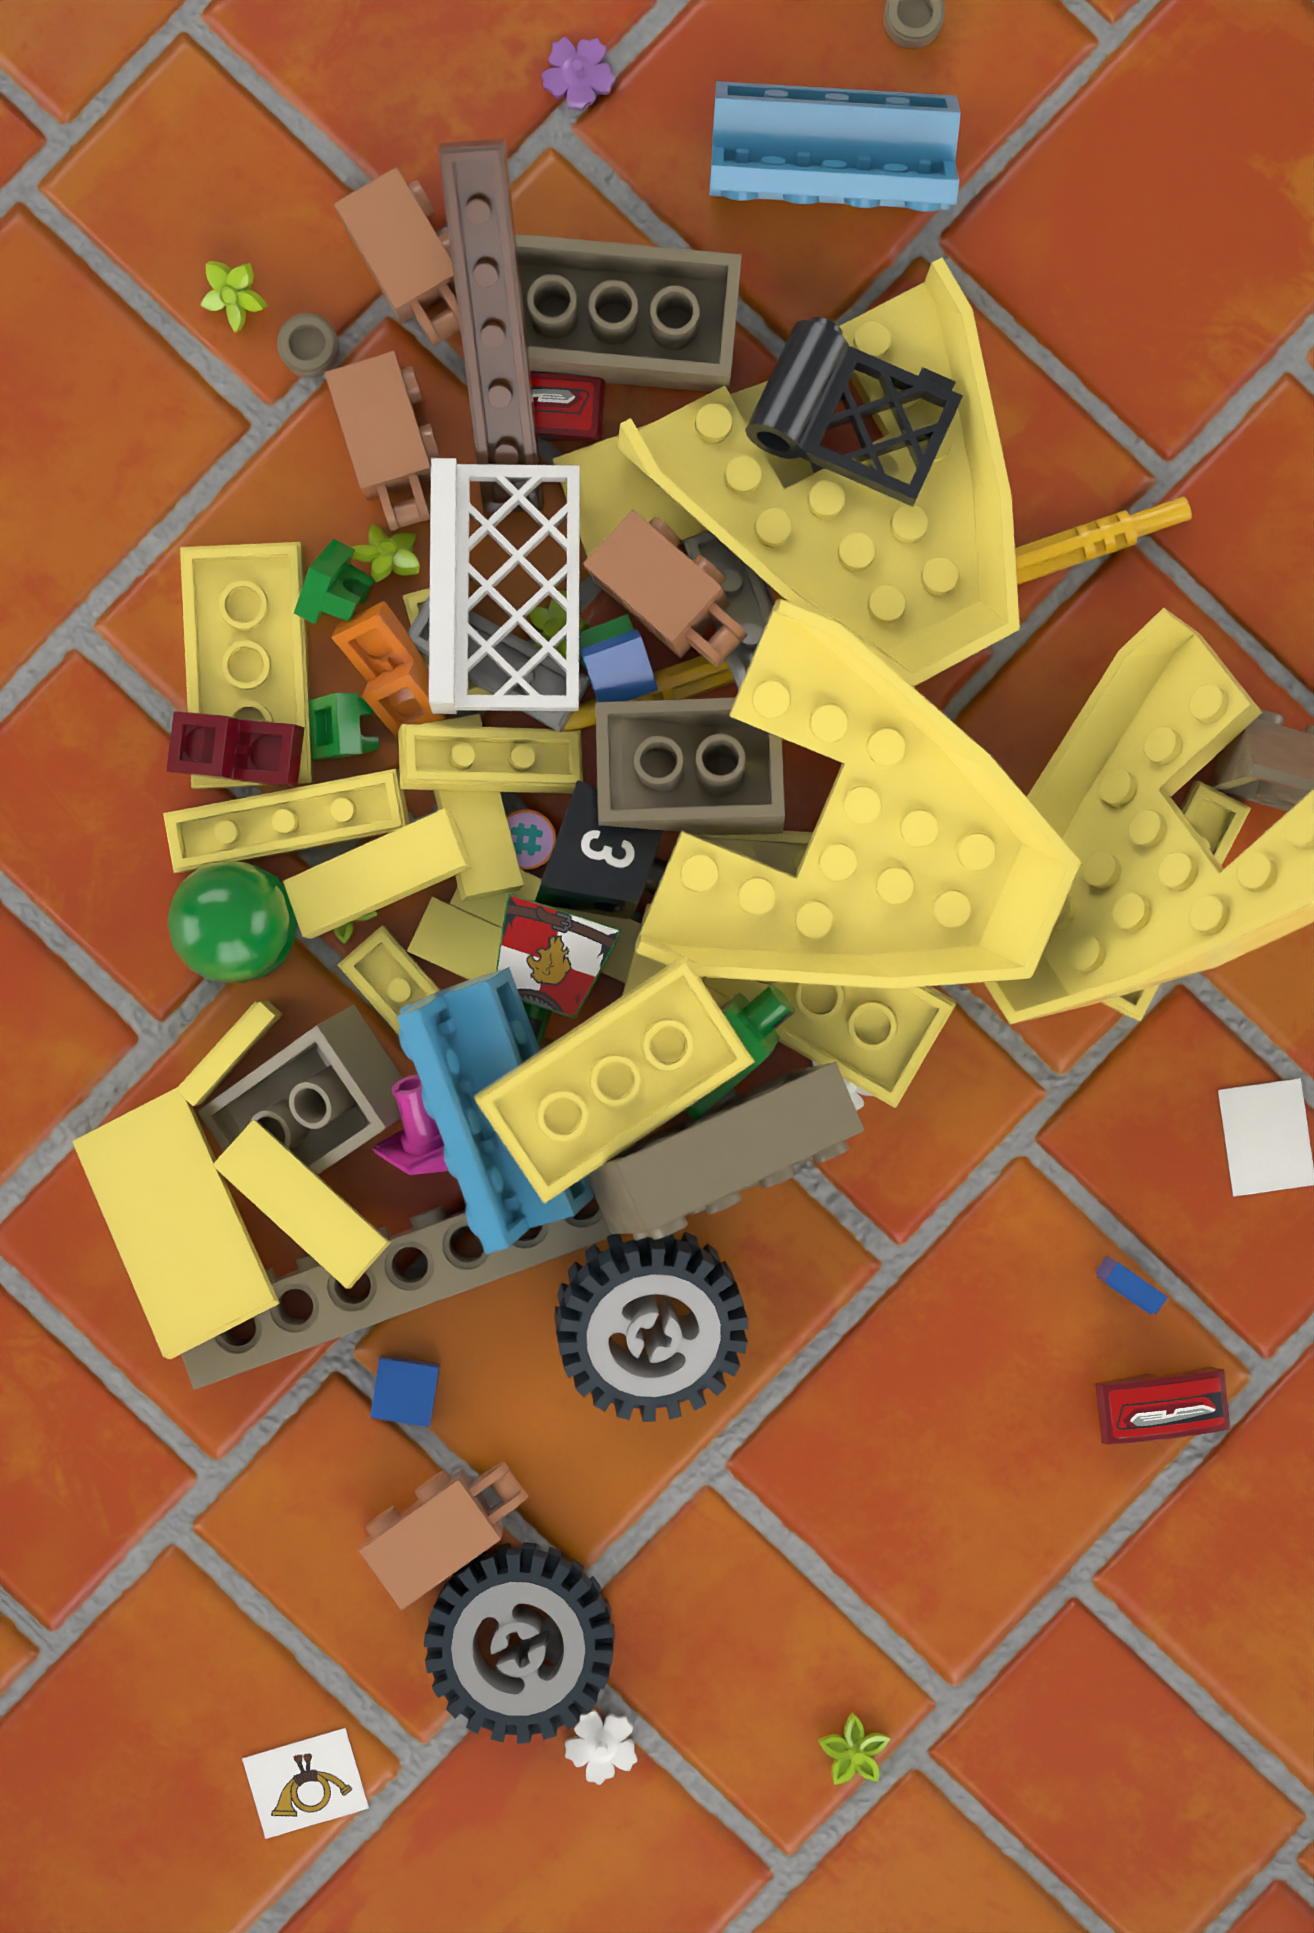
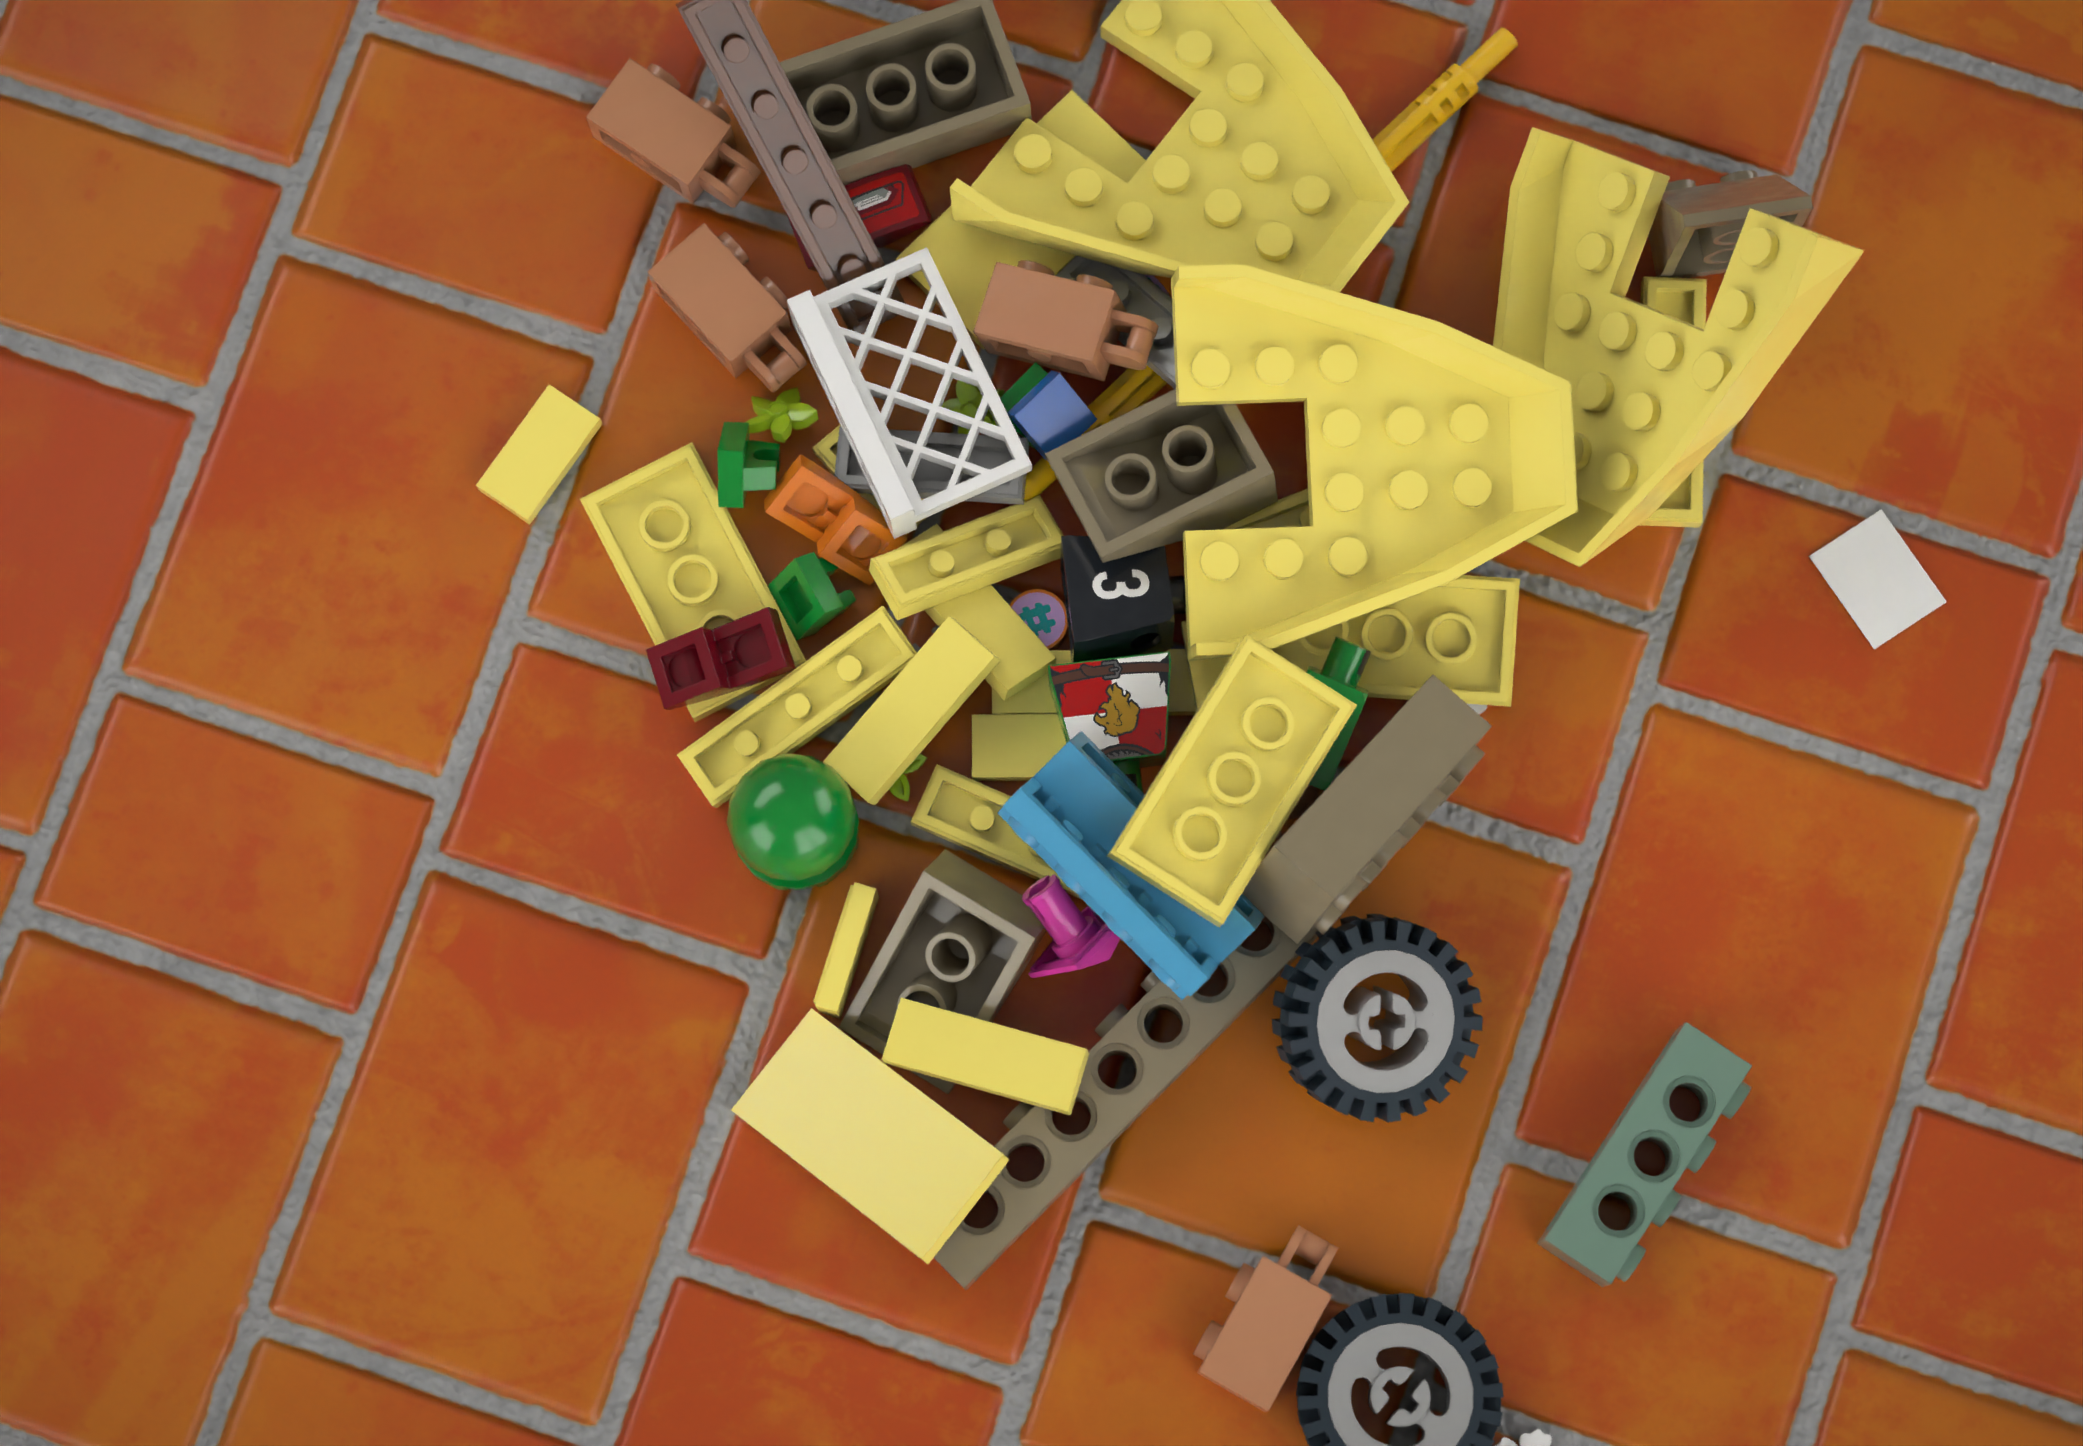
camera: 25 degrees left, 10 degrees down
(163, 490) = (539, 454): none -> light yellow tile
(232, 291) = (523, 243): lime plant -> none
(308, 345) = (616, 261): dark tan tile -> none
(405, 1390) = (1168, 1205): blue tile -> none
(787, 1538) = (1687, 1062): none -> sand green brick
(810, 384) = (1107, 93): black piece -> none
(854, 1751) = (1779, 1357): lime plant -> none
(1130, 1286) = (1818, 773): blue tile -> none
(1162, 1406) = (1907, 875): slope -> none

